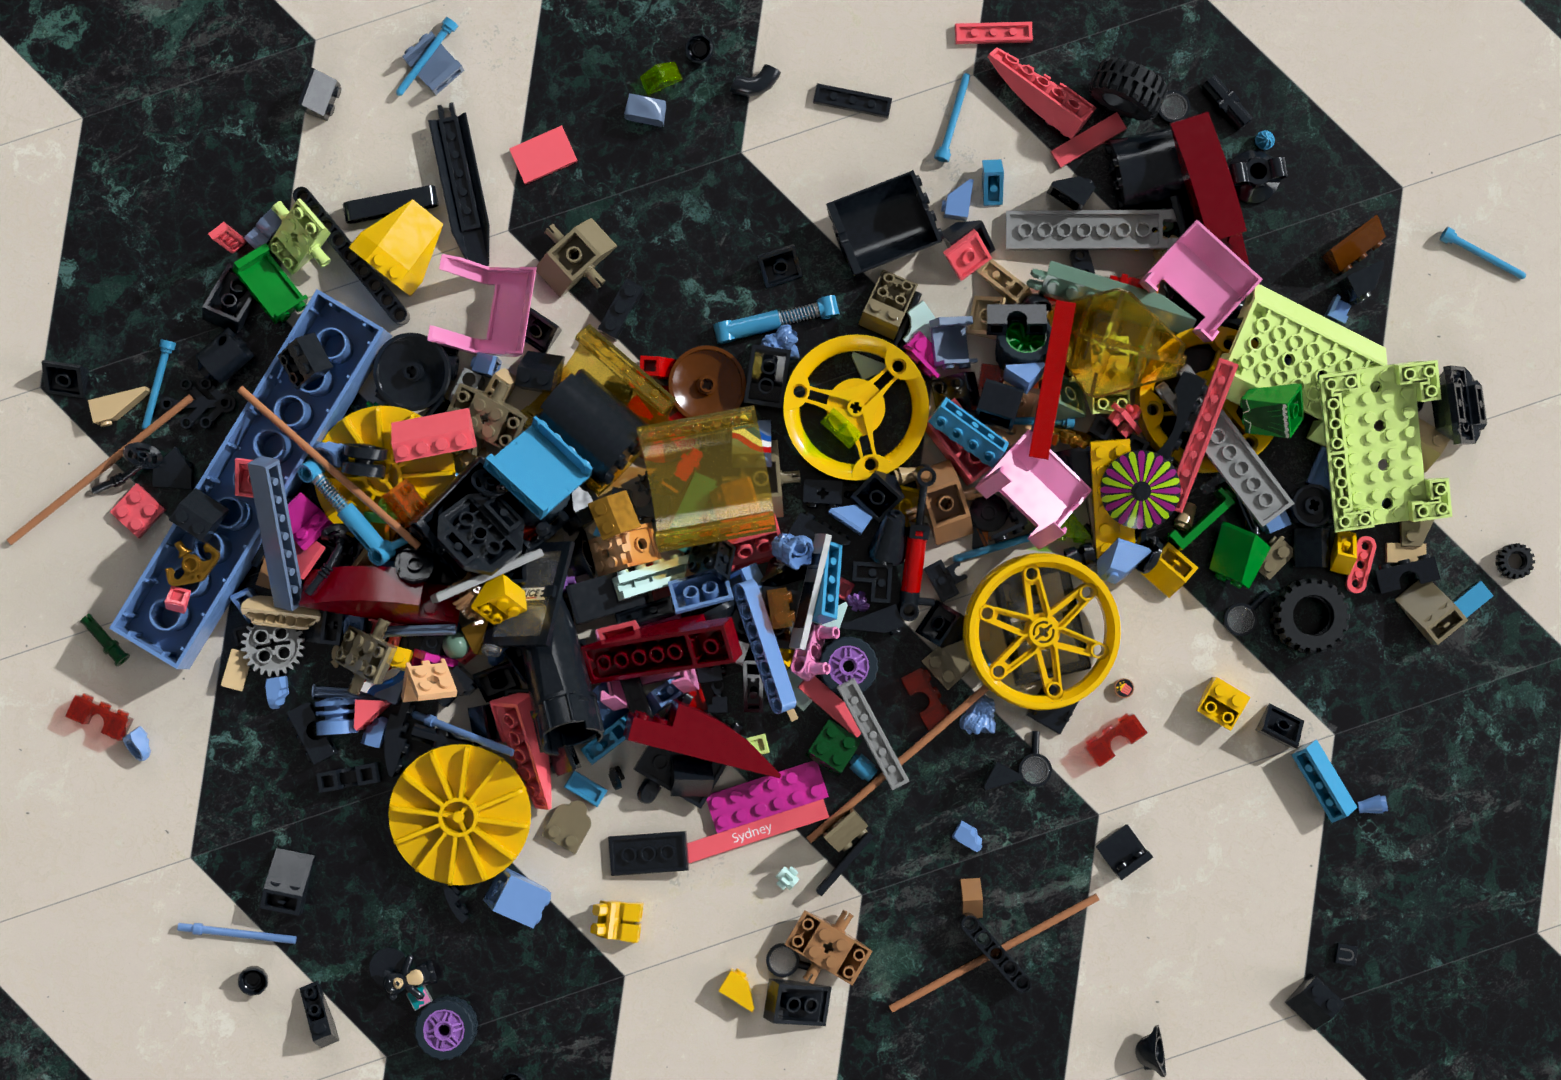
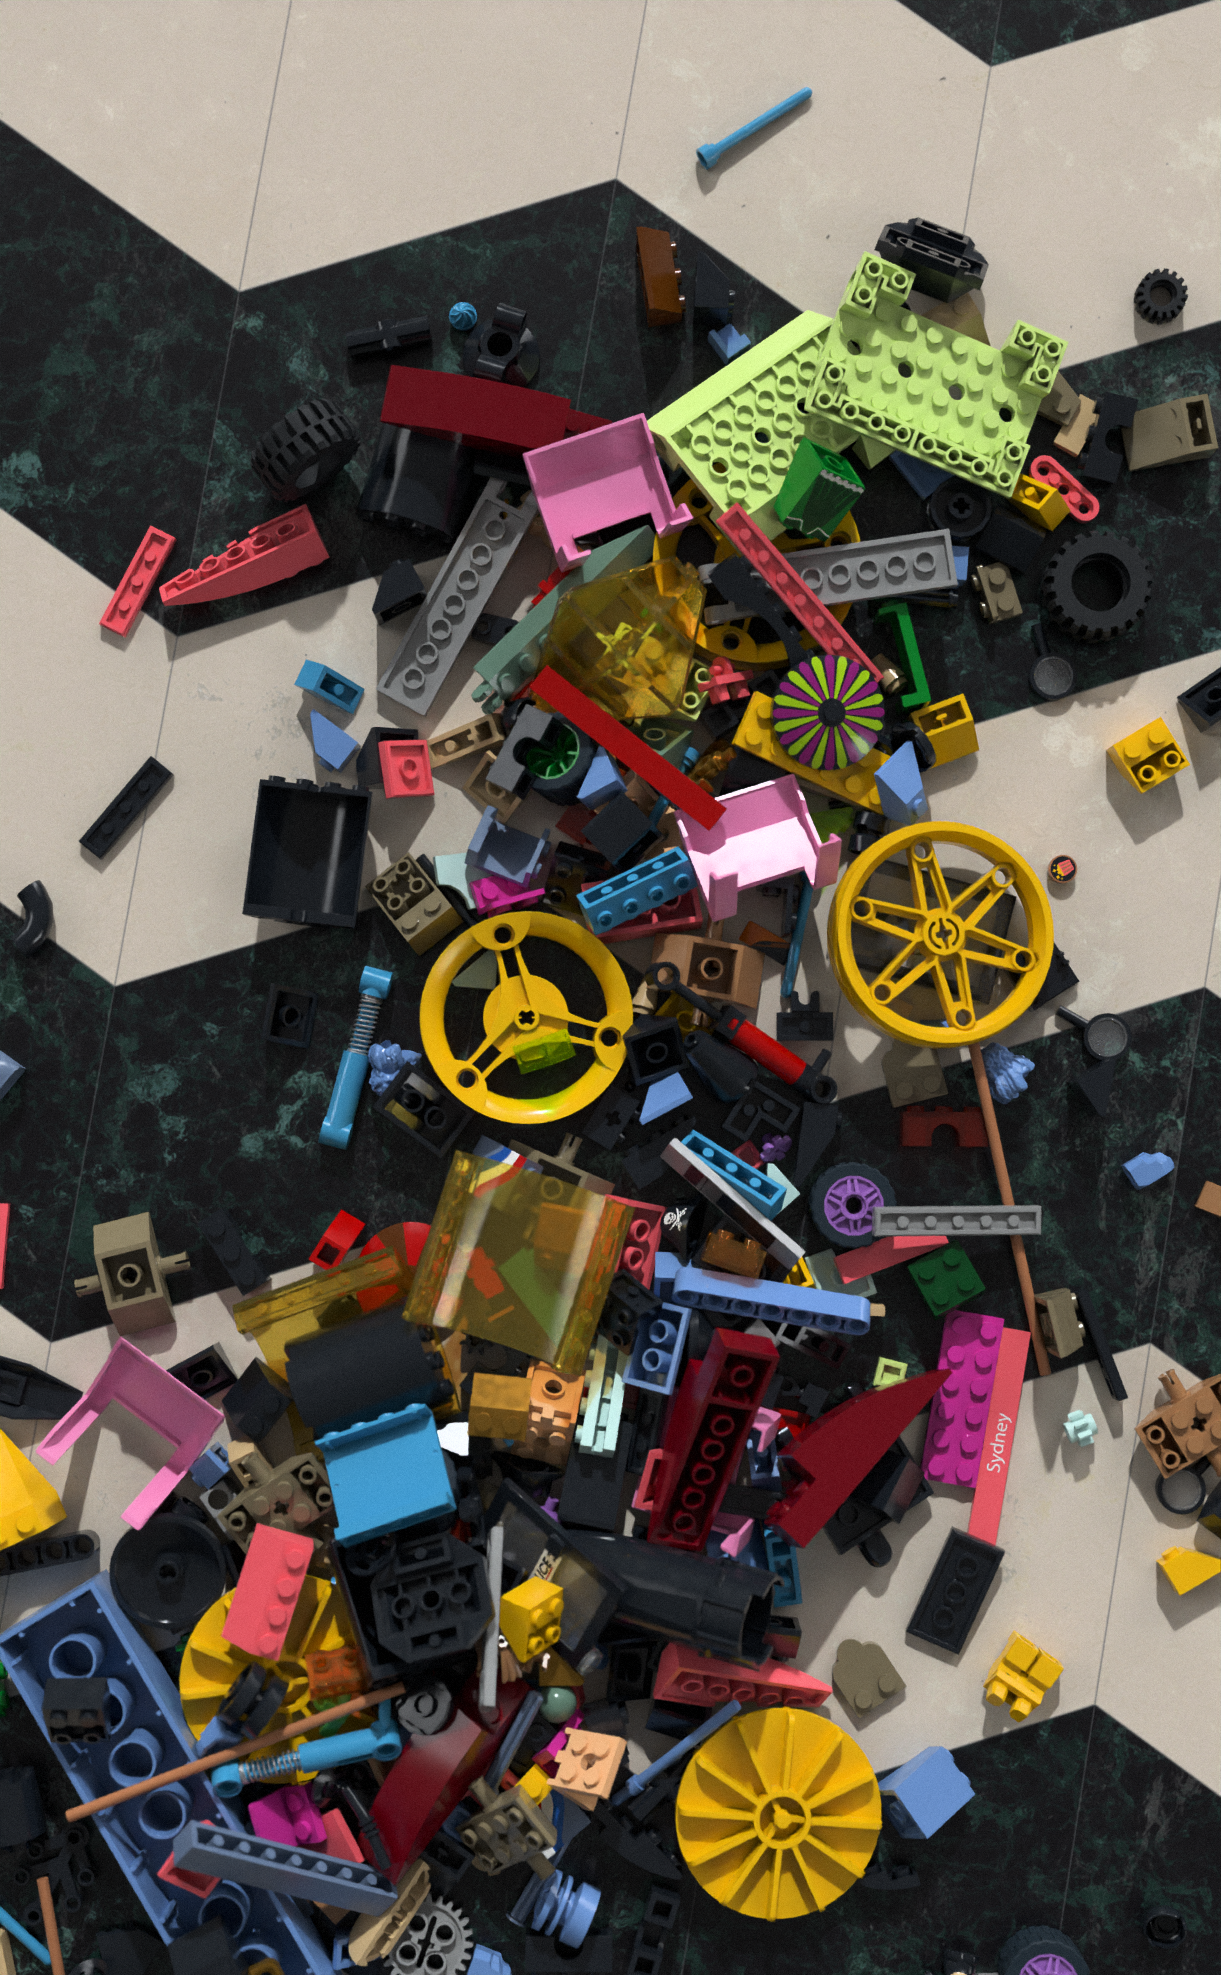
camera: 70 degrees left, 0 degrees up
(367, 711) = (579, 1865): coral slope -> none
(375, 733) = (613, 1867): medium blue rock -> none
(585, 788) = (829, 1627): dark azure tile -> none
(614, 776) = (833, 1582): black piece -> none
(706, 381) = (390, 1191): reddish brown dish -> none
(793, 550) = (666, 1197): medium blue hair -> none
(806, 662) = (820, 1258): bright pink piece -> none
(862, 767) = (989, 1255): dark azure brick -> none
(942, 625) = (863, 1057): black slope -> none
(943, 153) = (258, 729): dark azure piece -> none
(988, 513) = (753, 922): black tile -> none
(1088, 140) = (341, 536): coral tile -> none
(1100, 747) = (1121, 939): clear red arch -> none
(1174, 107) = (360, 405): clear piece -> none
(1238, 555) = (974, 635): green slope -> none
(1473, 598) = (1180, 373): dark azure tile -> none

